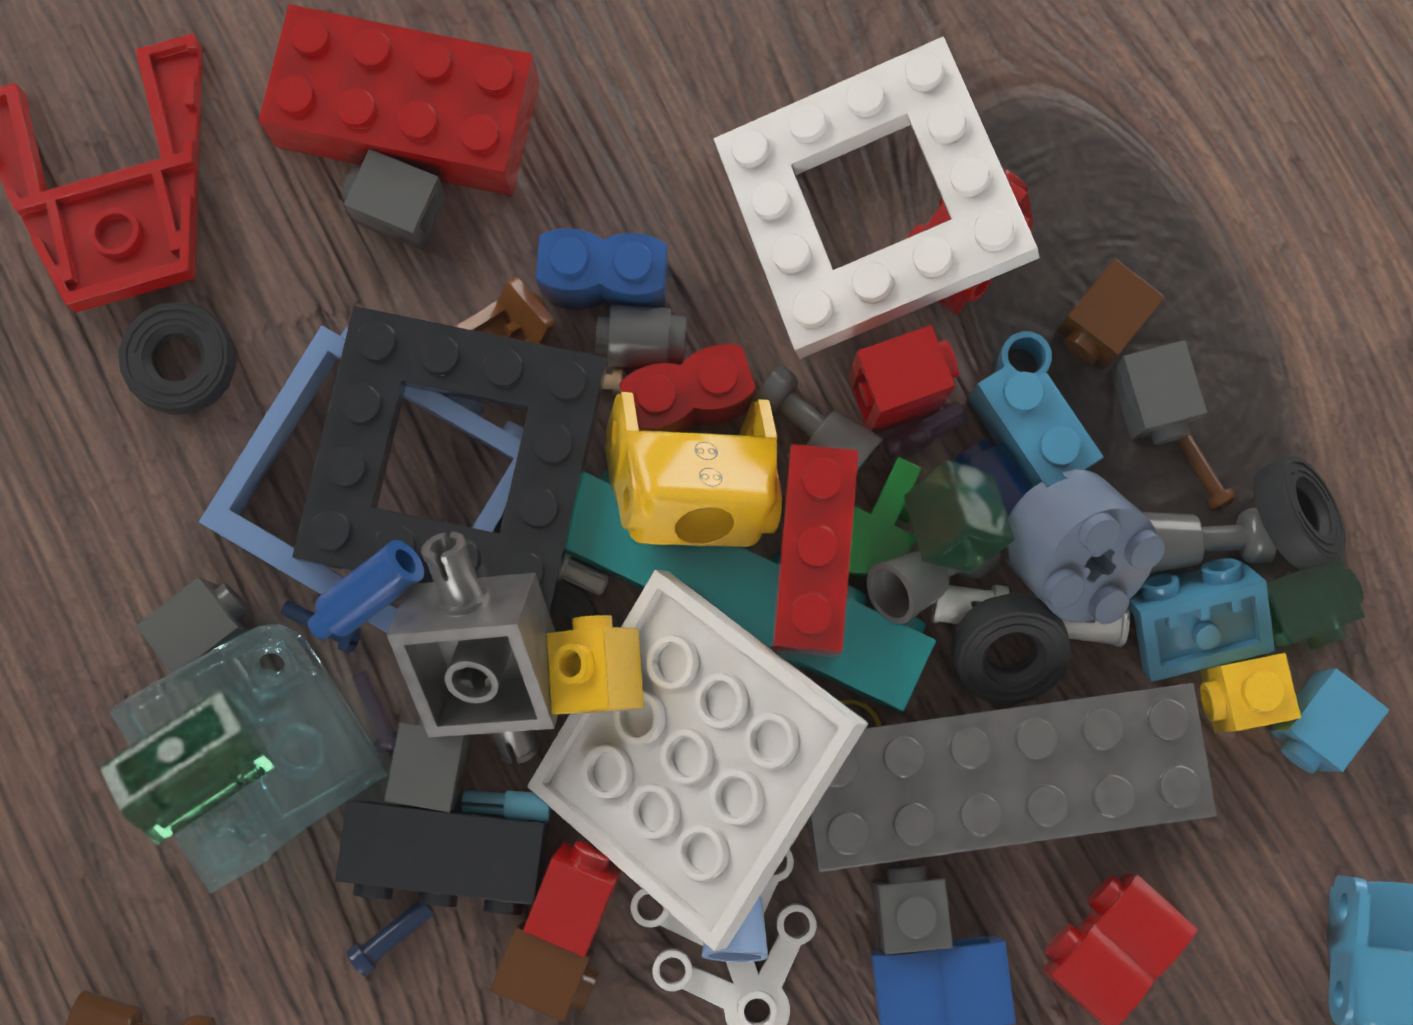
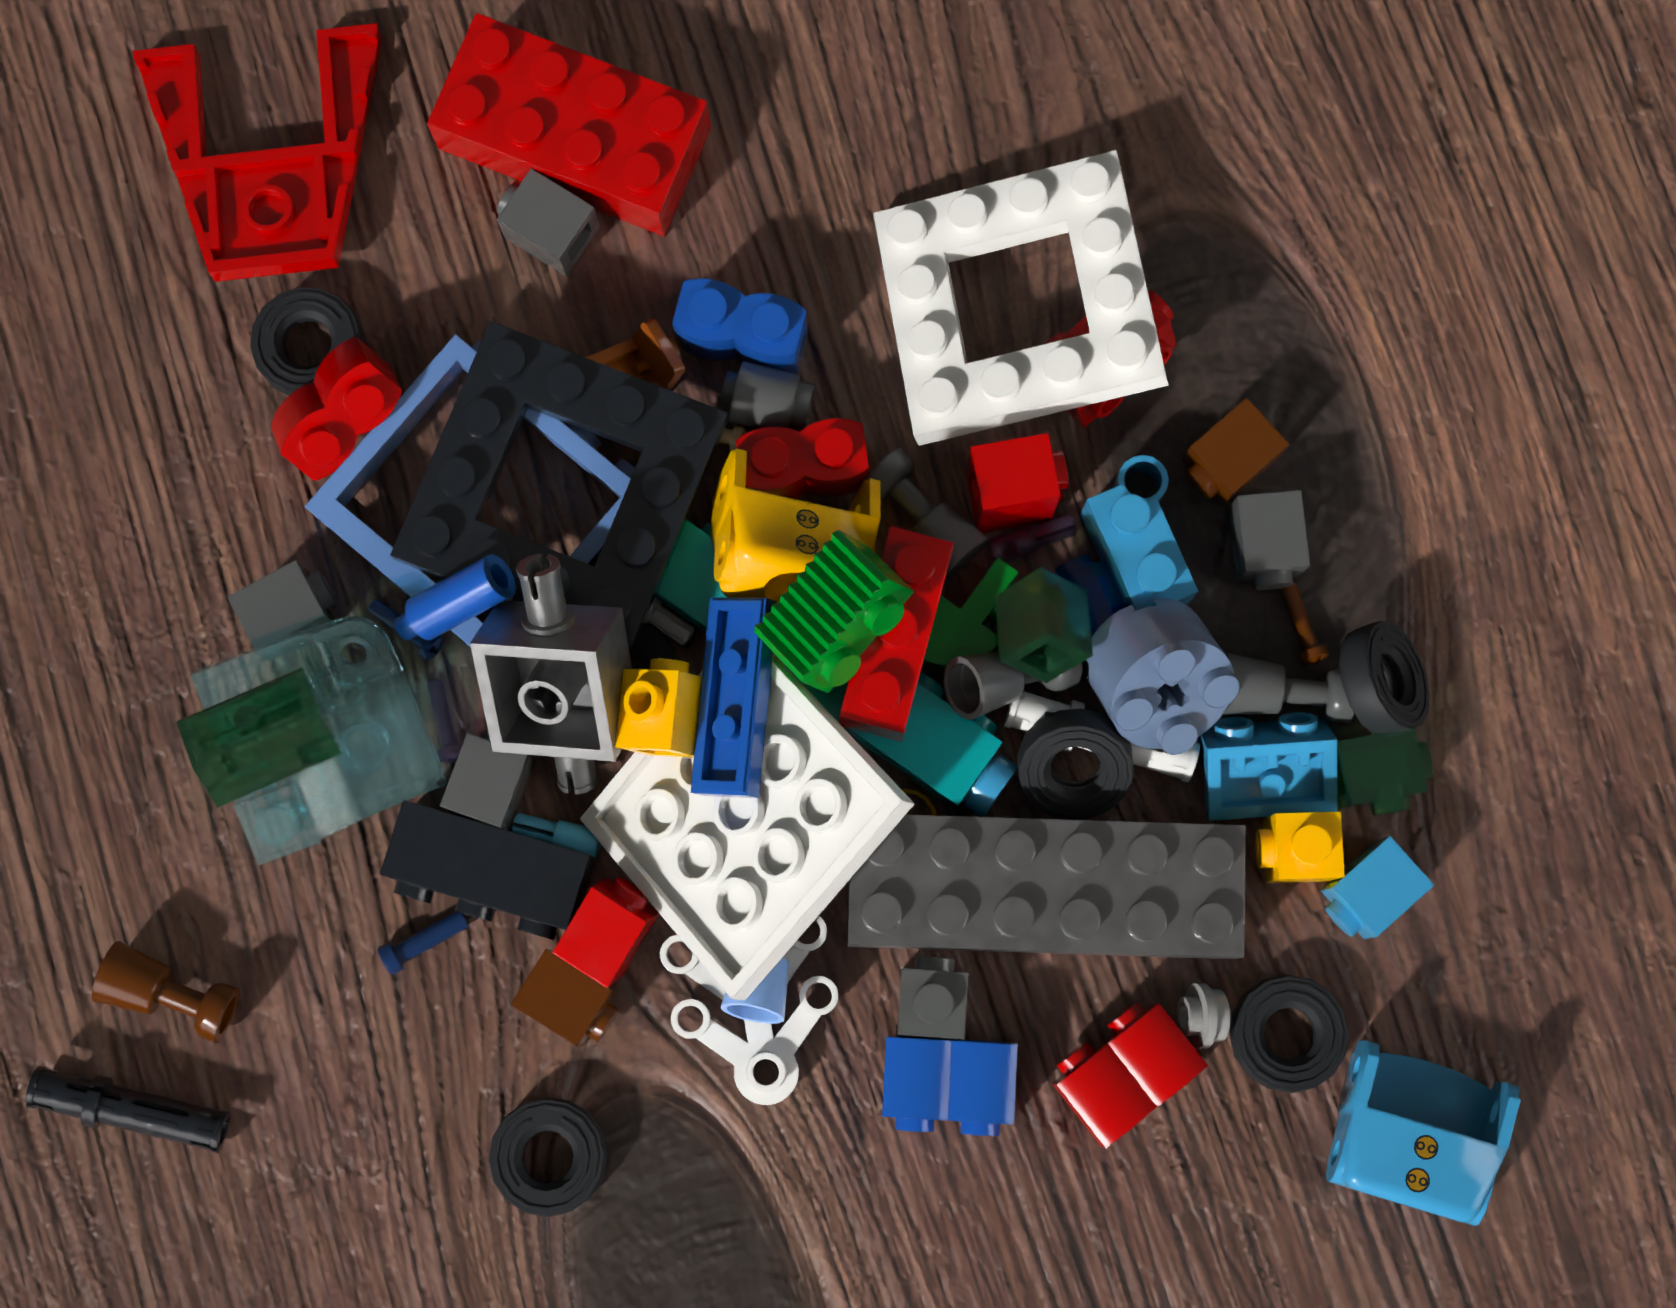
camera: 10 degrees right, 0 degrees up
(204, 431) = (323, 419): none -> red brick
(663, 643) = (732, 700): none -> blue tile
(752, 542) = (834, 612): none -> green brick
(930, 684) = (990, 785): none -> dark azure tile
(1181, 877) = (1203, 1015): none -> light grey plate
(1307, 873) = (1328, 1027): none -> black tyre

